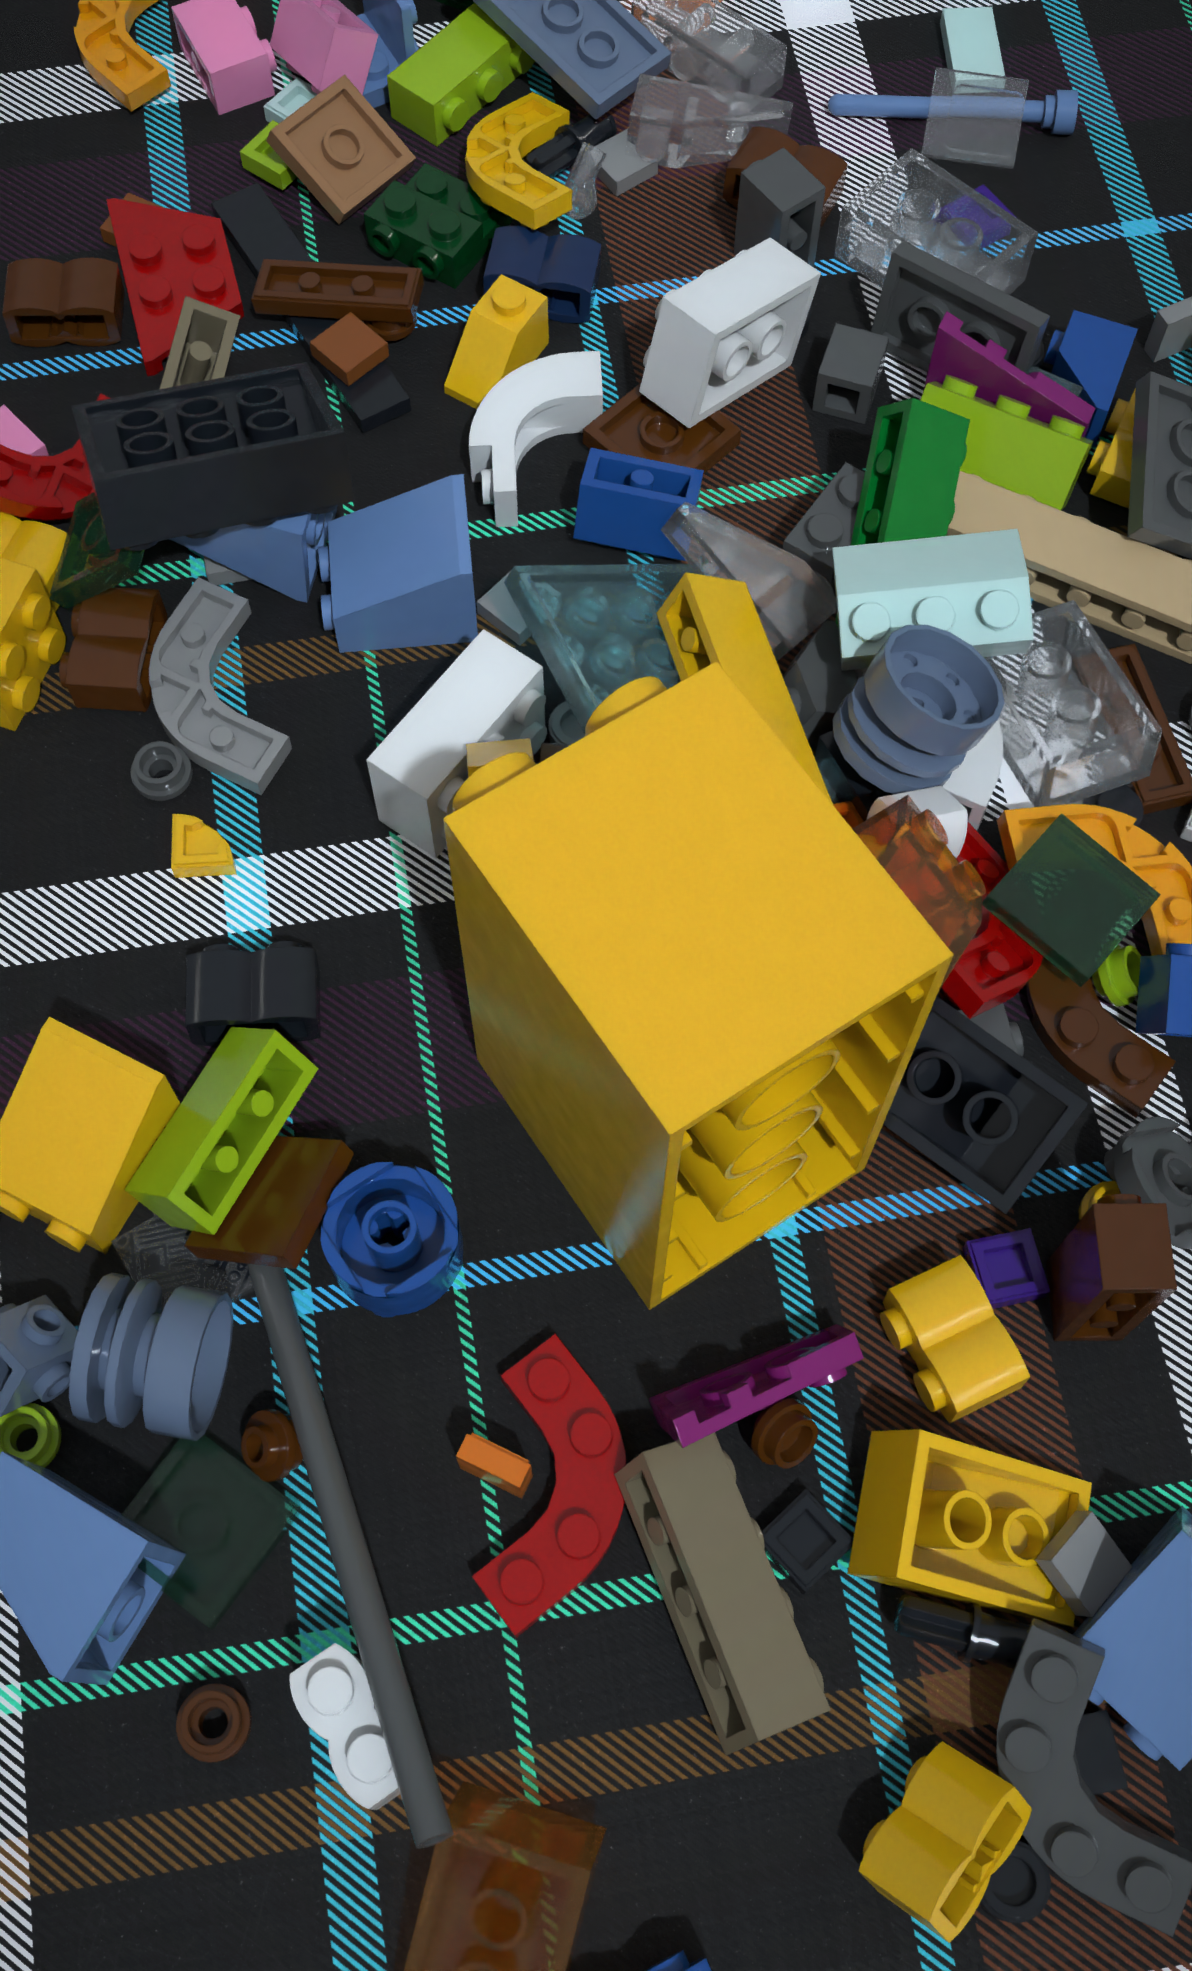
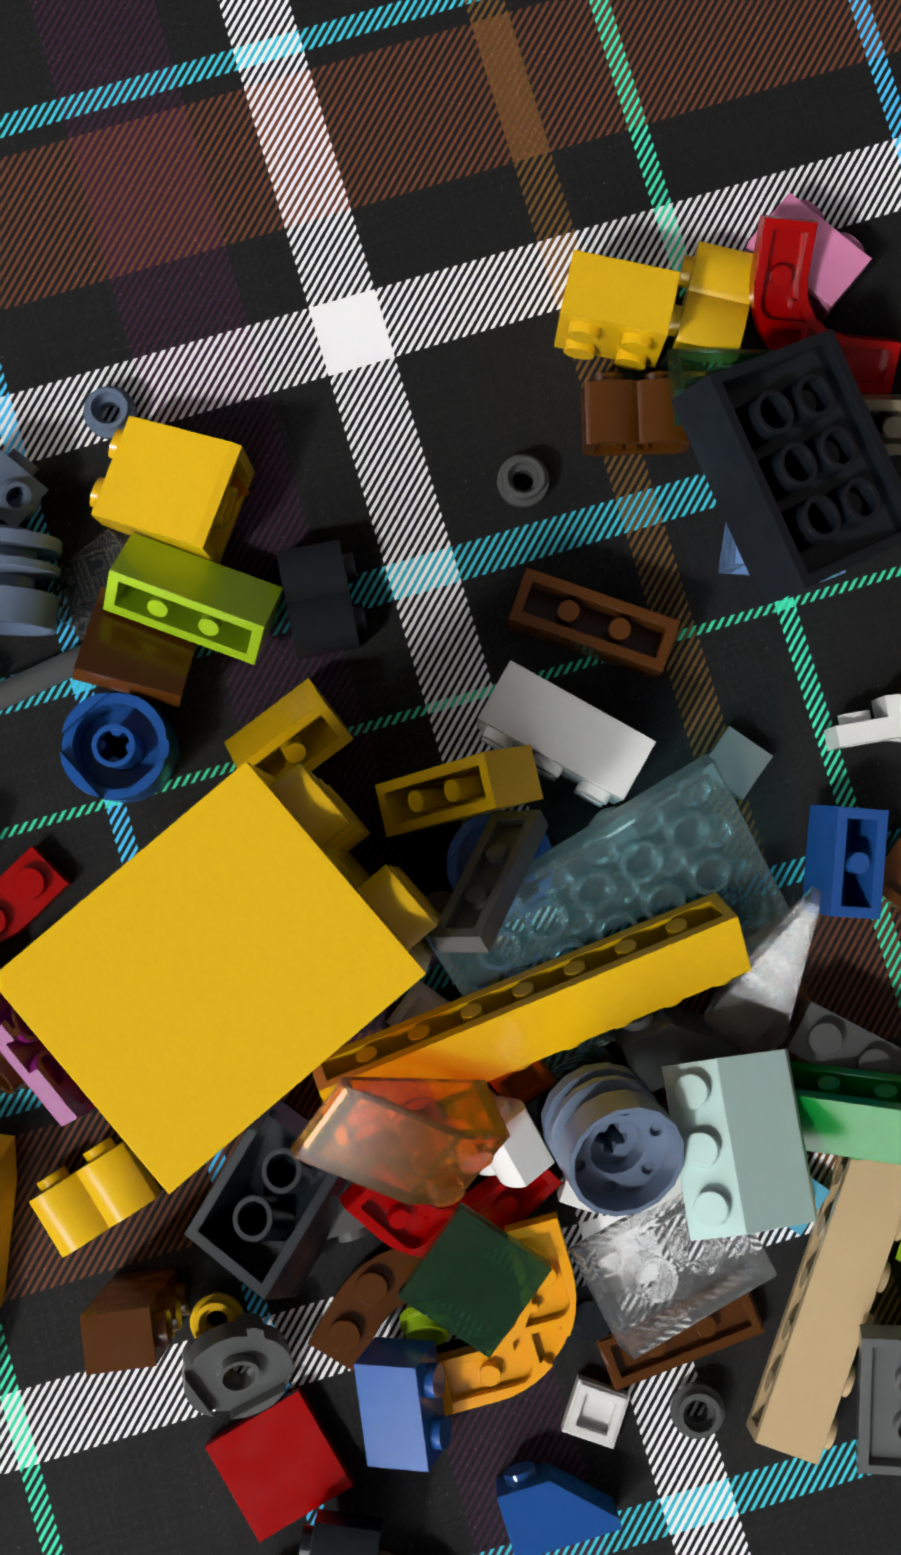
camera: 85 degrees right, 20 degrees up
(185, 693) = (602, 484): light grey plate -> none
(199, 849) = (456, 527): yellow tile -> none
(339, 708) = (592, 624): none -> reddish brown brick
(401, 571) = (741, 656): medium blue slope -> none
(417, 1039) = (291, 731): none -> yellow brick
(1007, 1267) = (161, 1234): dark purple tile -> none

